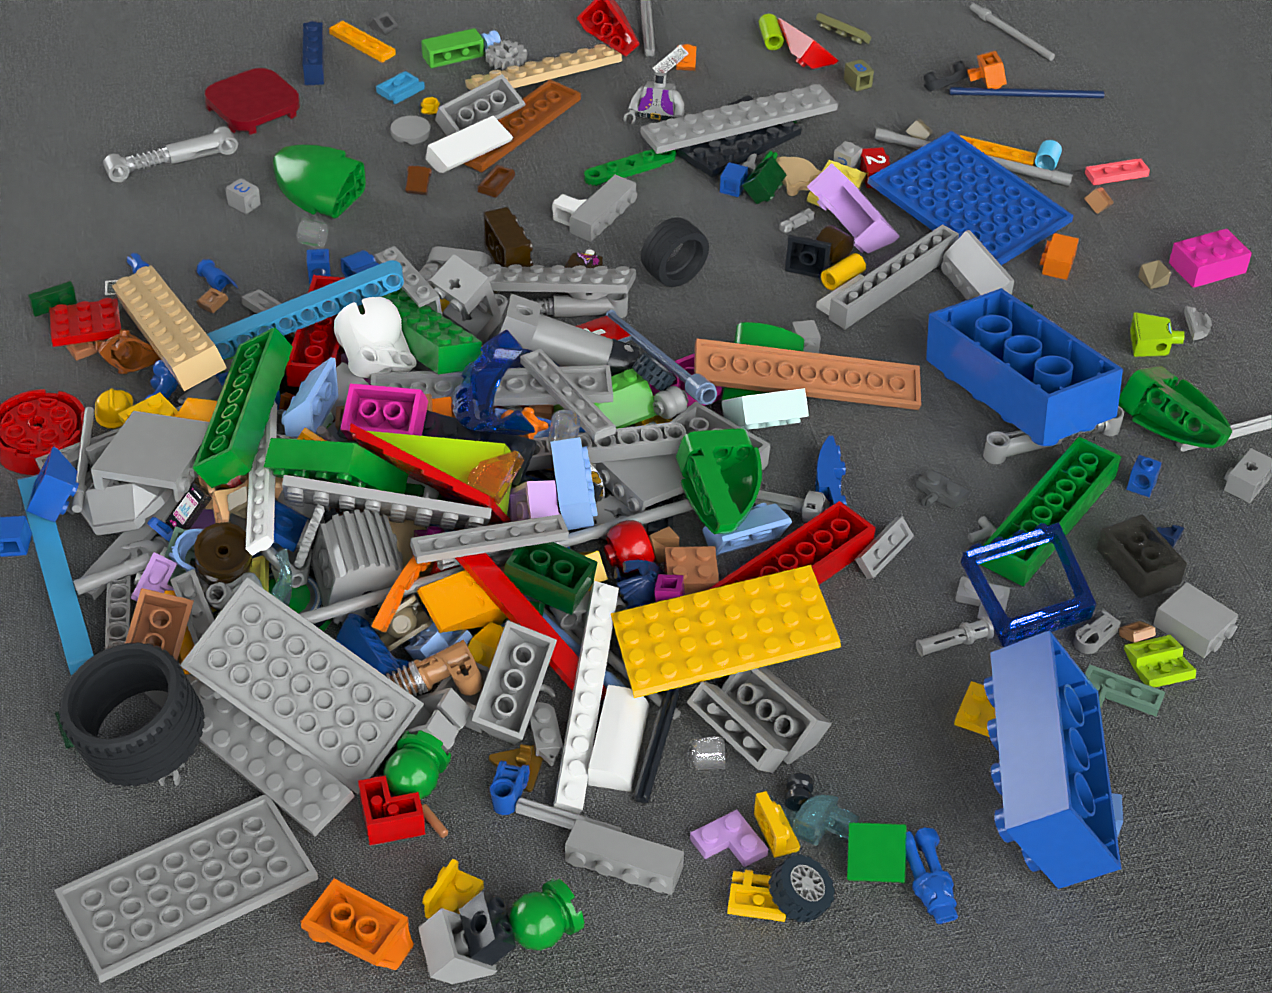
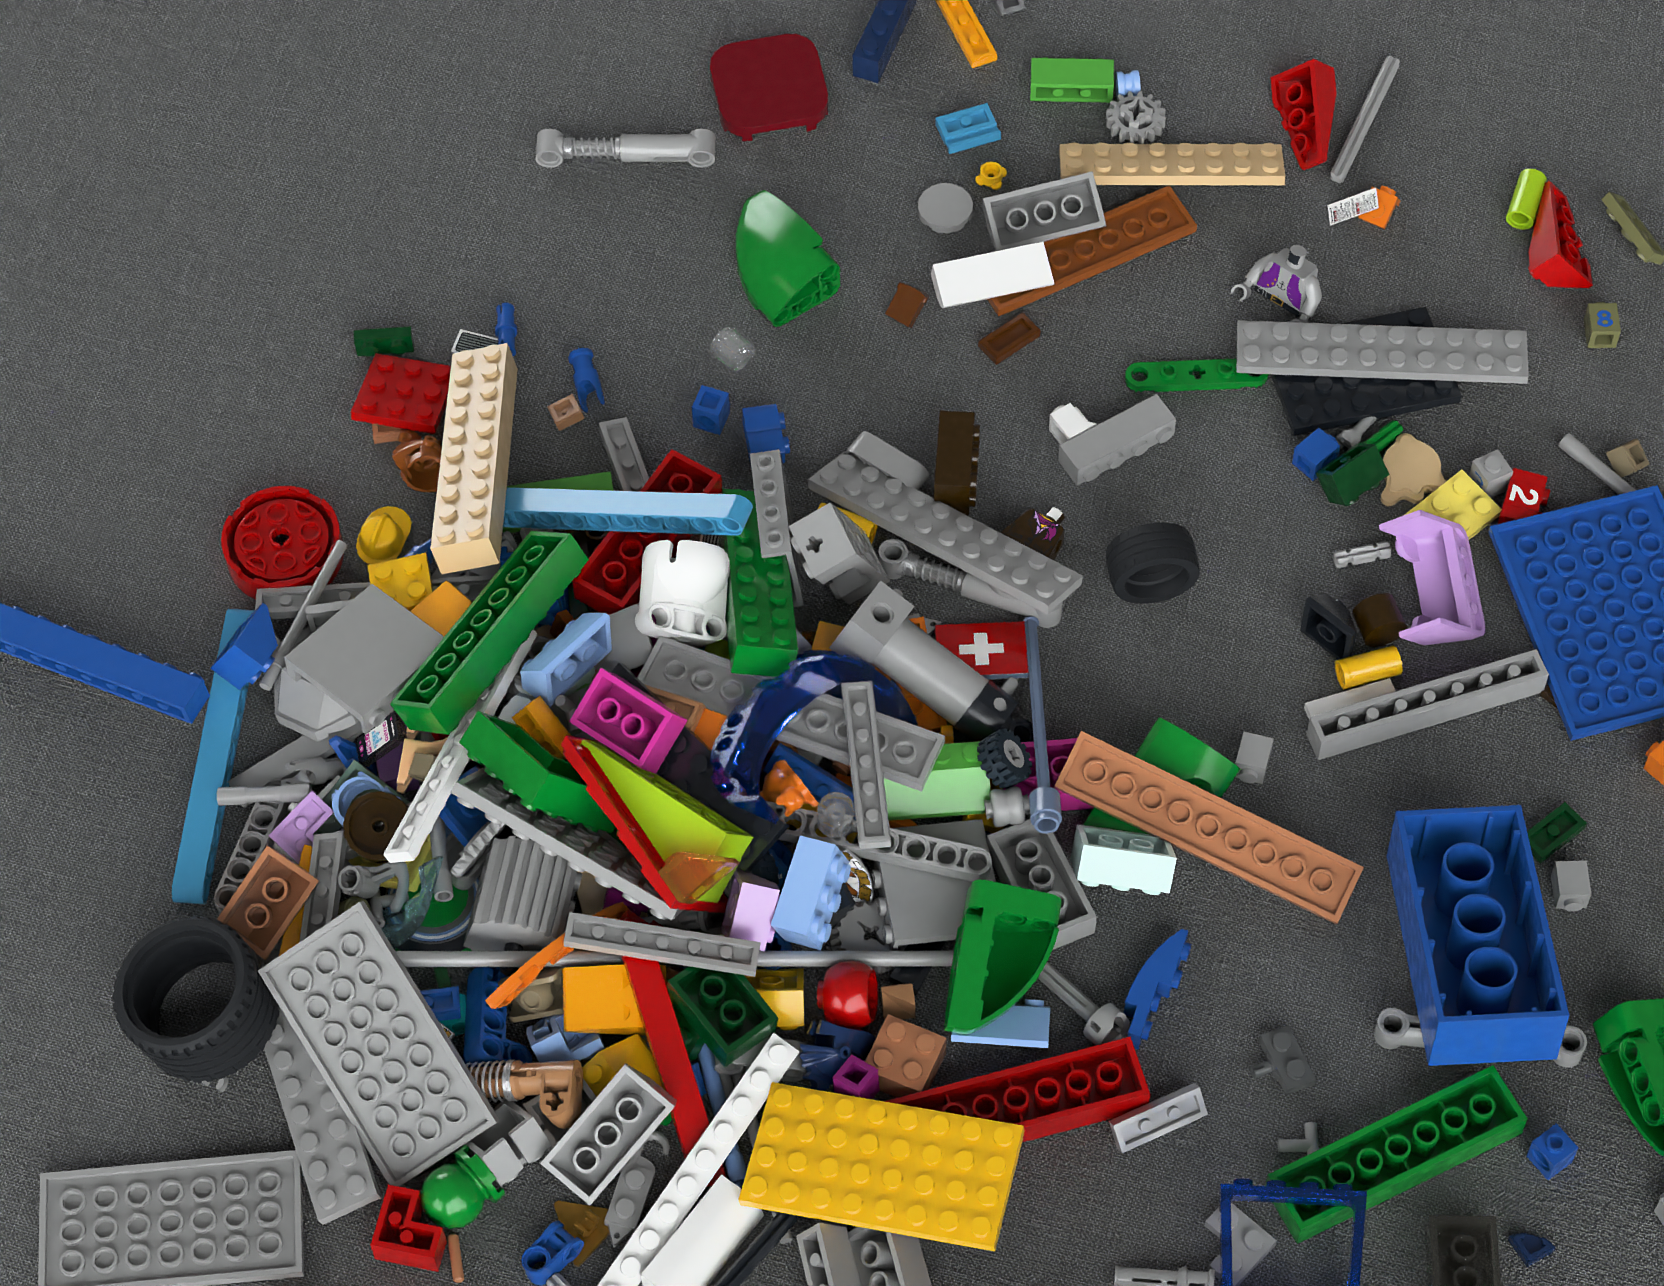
camera: 30 degrees right, 15 degrees up
(243, 196) = (679, 253): light grey brick -> none
(974, 268) = (1535, 750): light grey slope -> none

